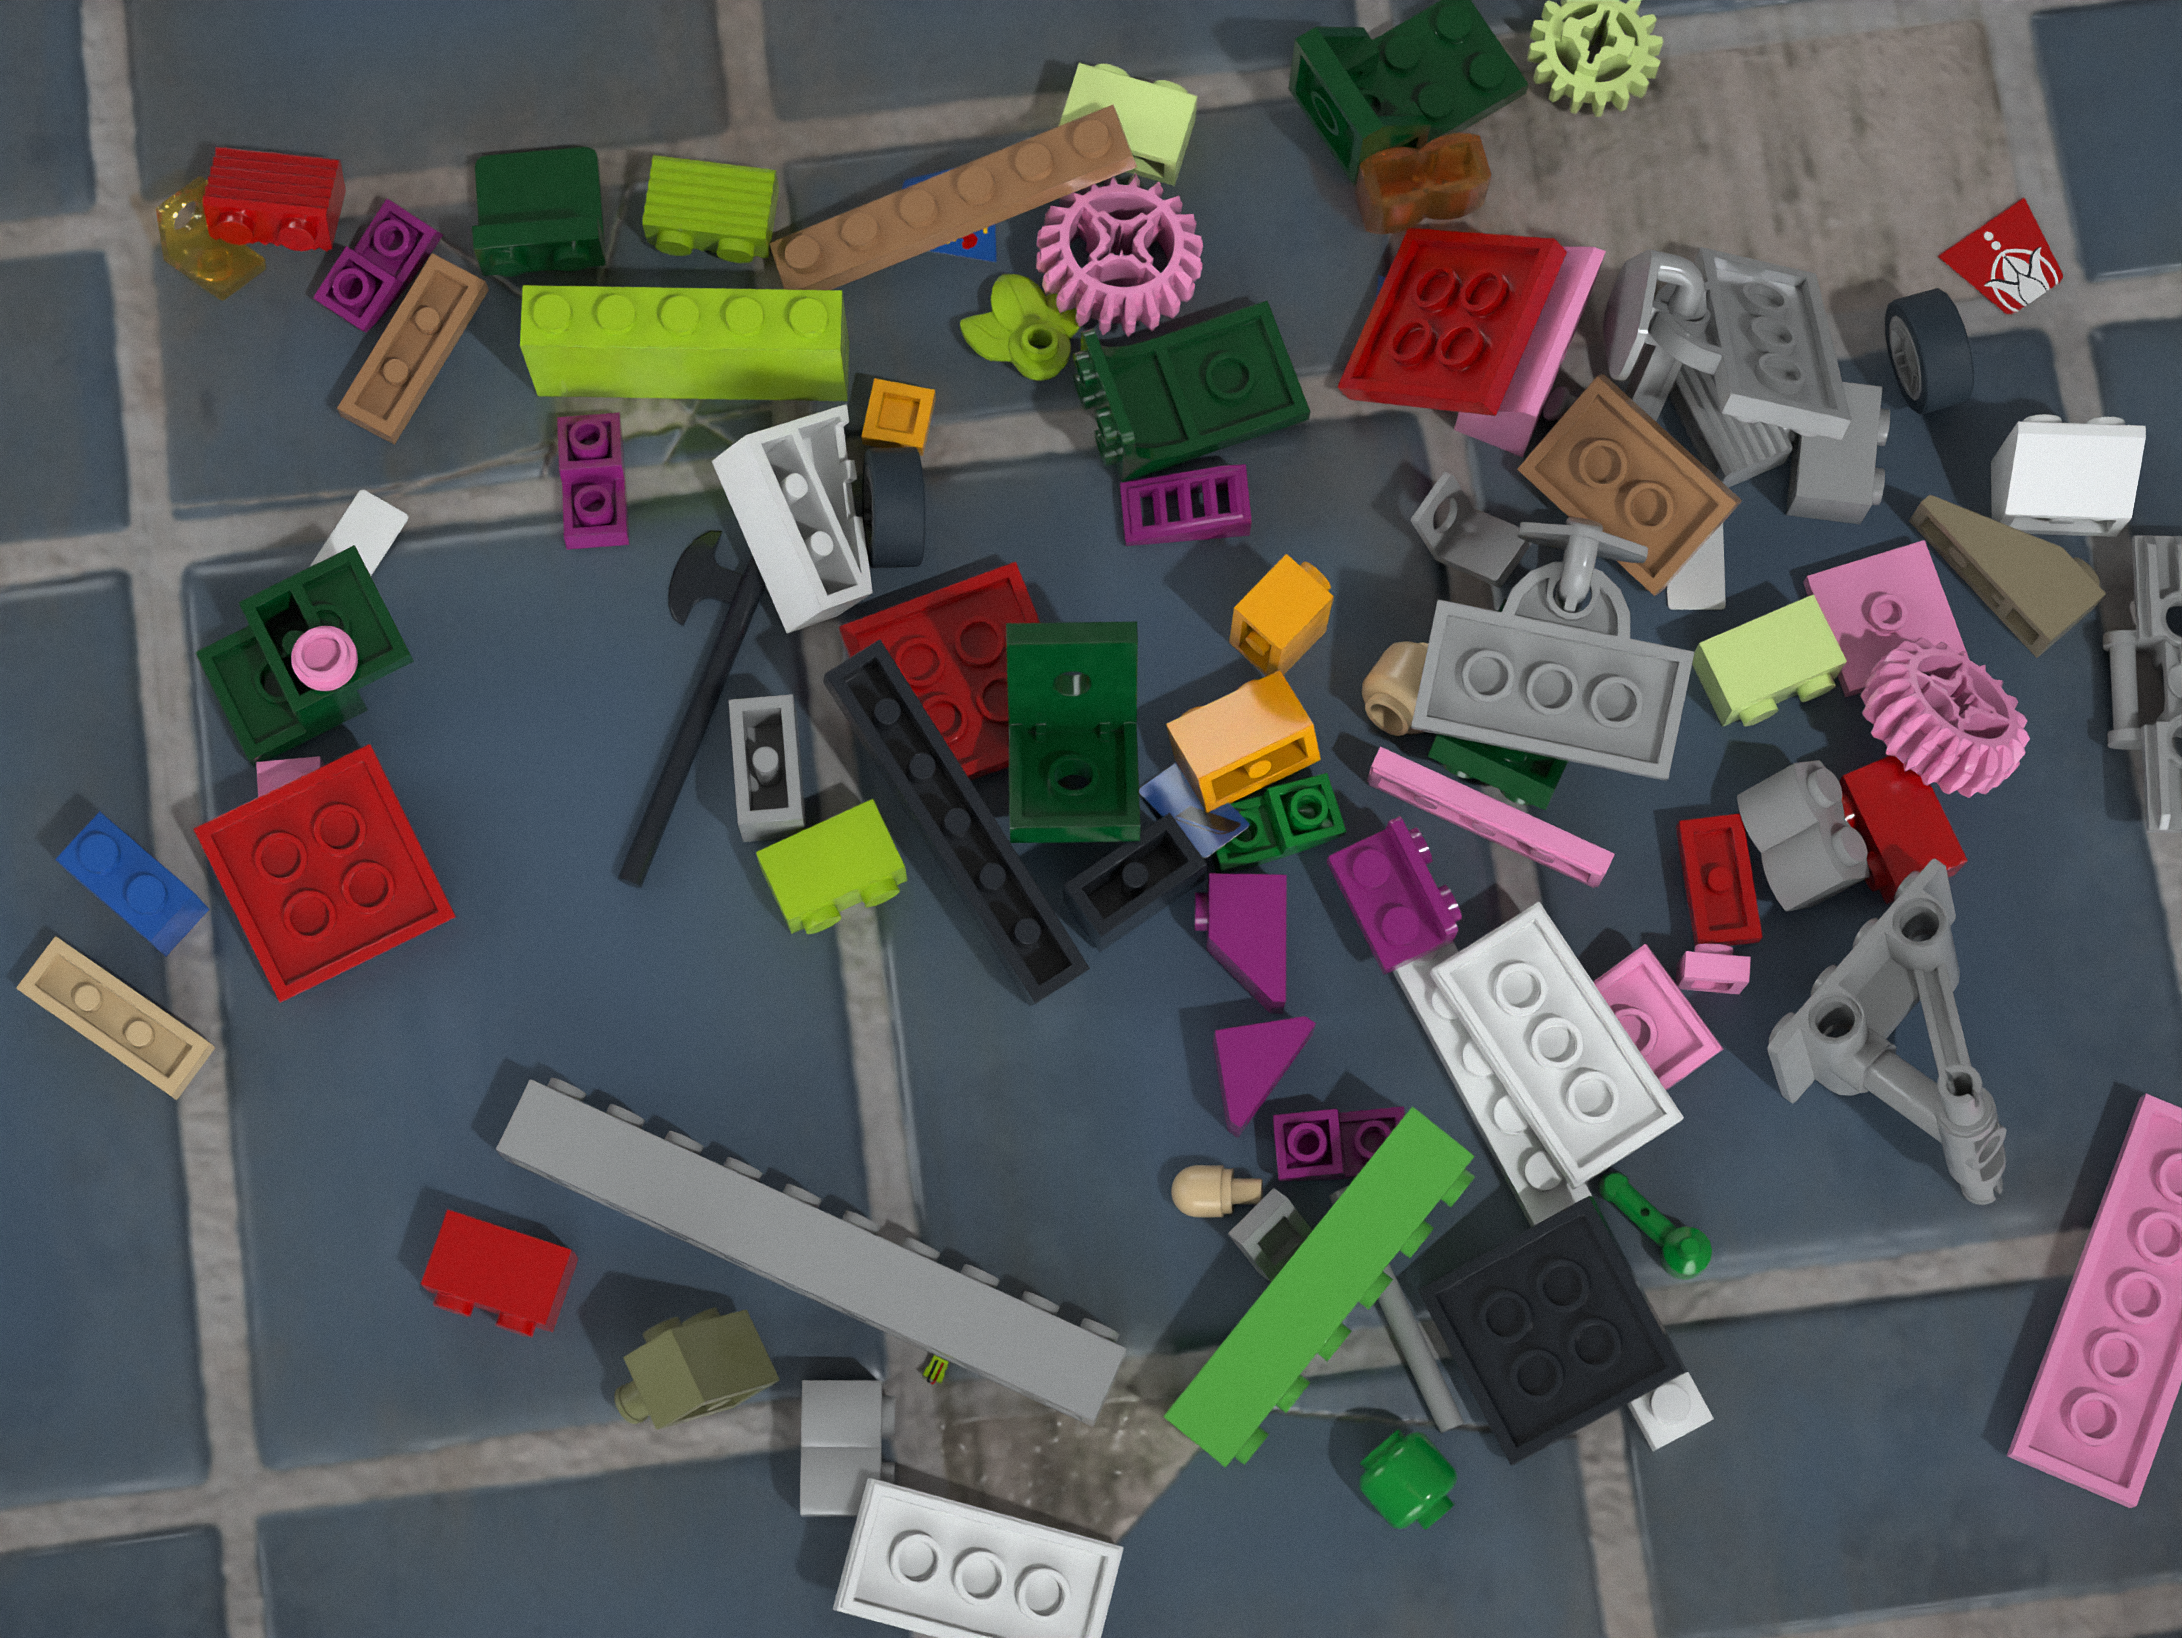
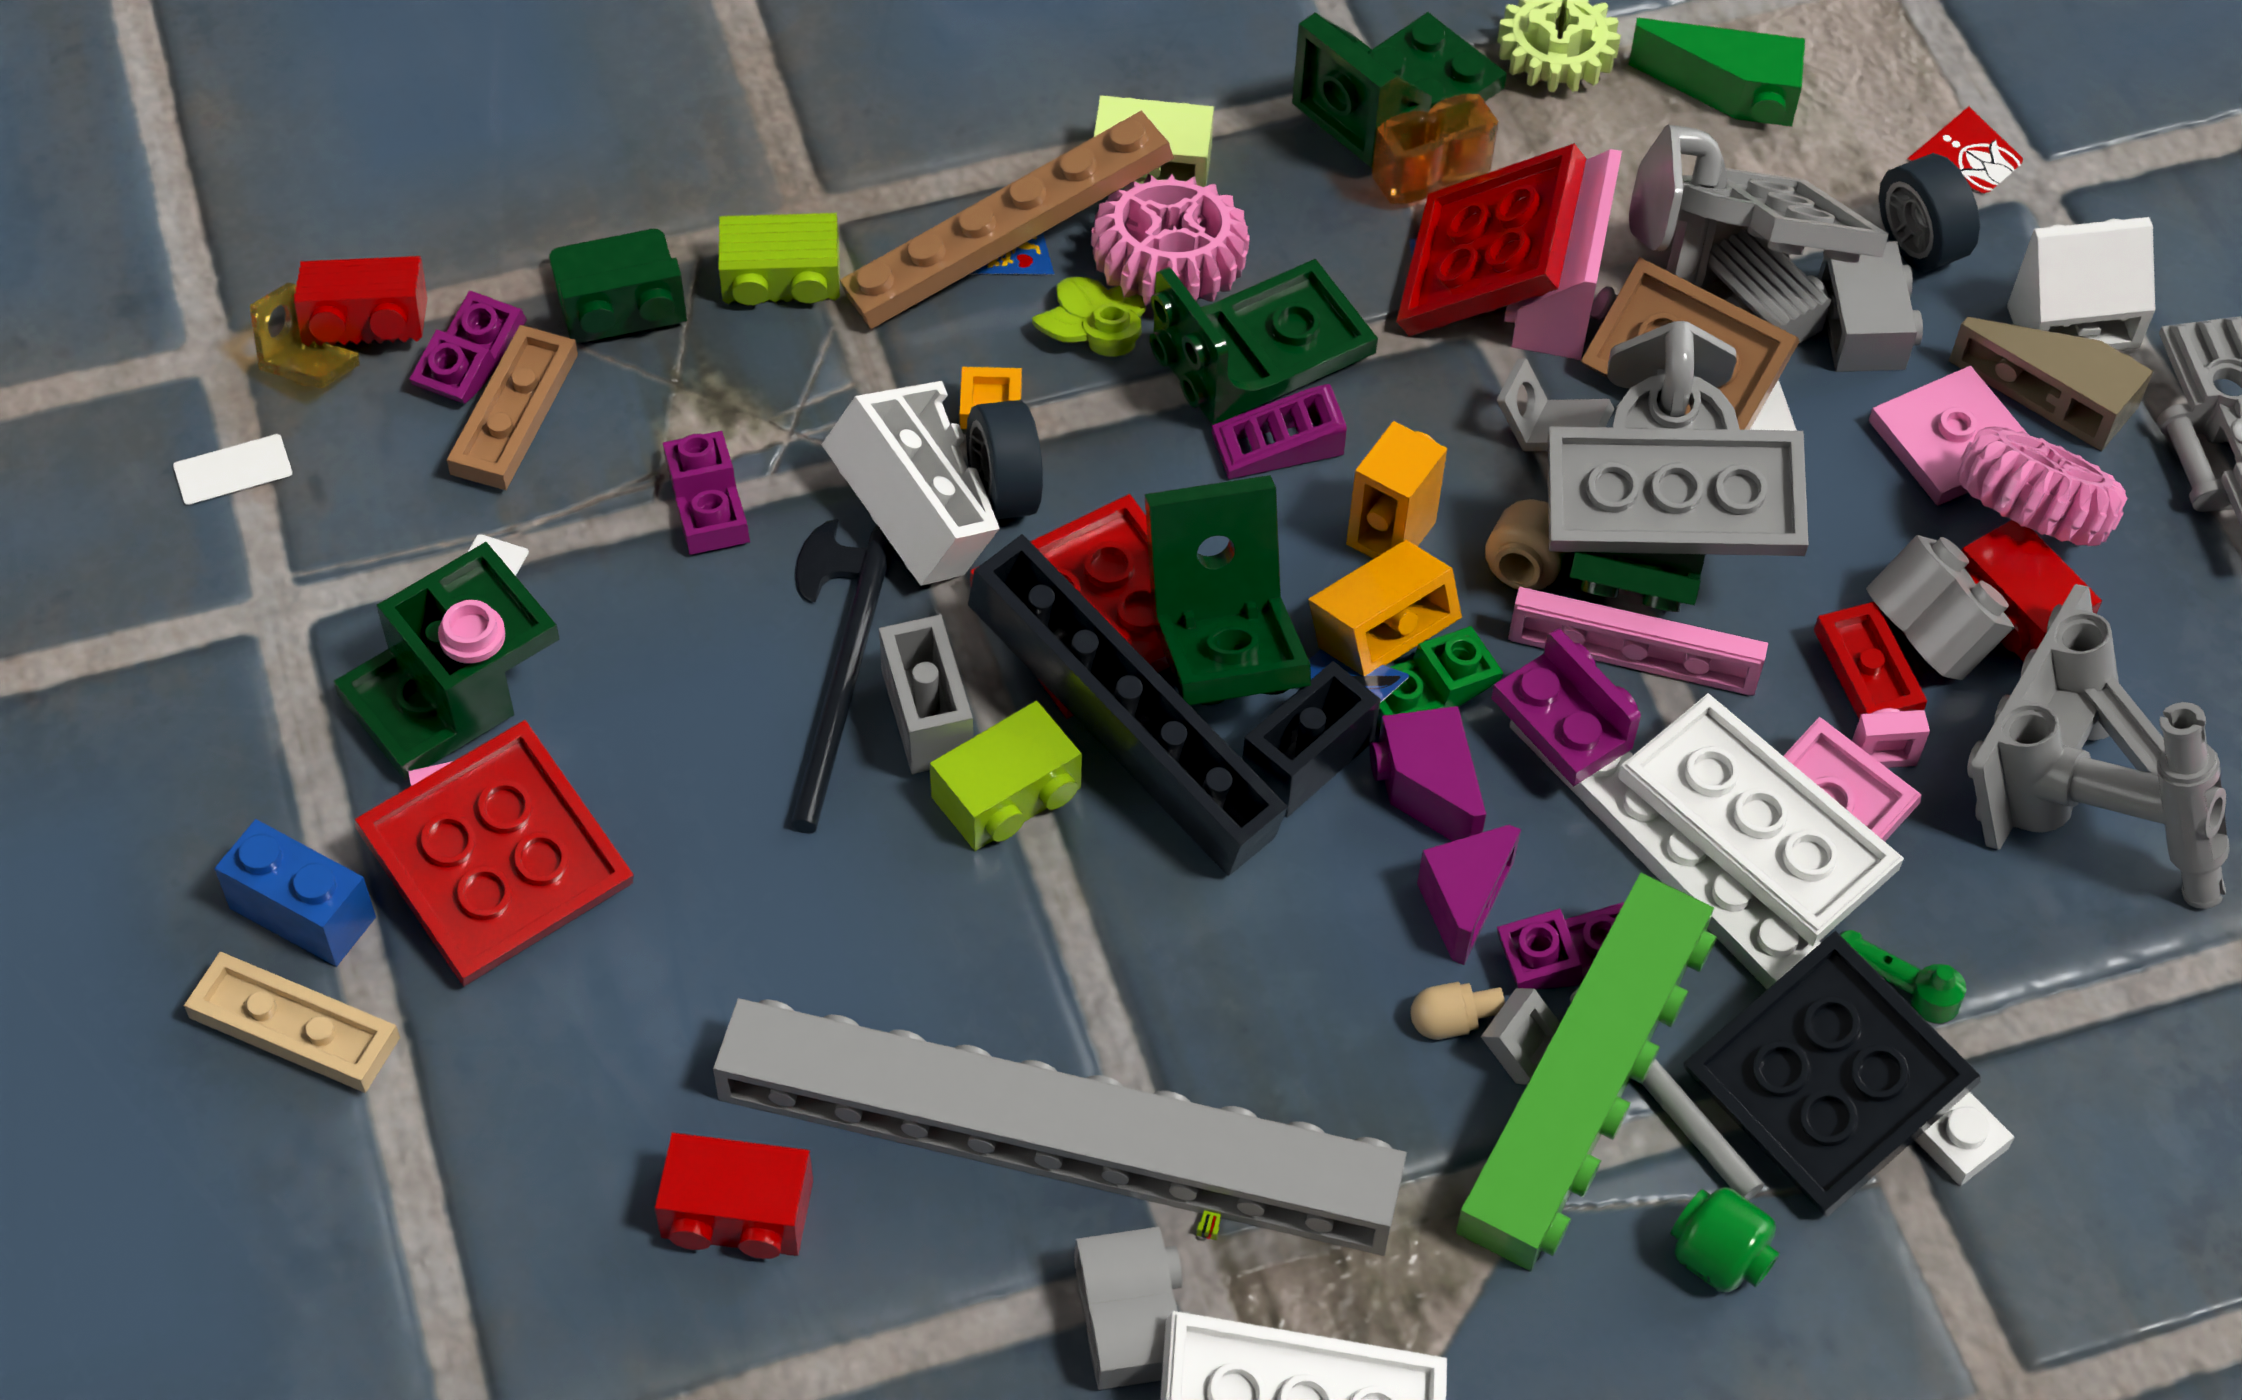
camera: 10 degrees left, 20 degrees down
(126, 370) = (232, 469): none -> white sticker
(685, 343) = (776, 347): lime brick -> none
(694, 1369) = (958, 1244): olive brick -> none
(1769, 662) = (1865, 477): yellowish green brick -> none
(1773, 122) = (1727, 69): none -> green slope

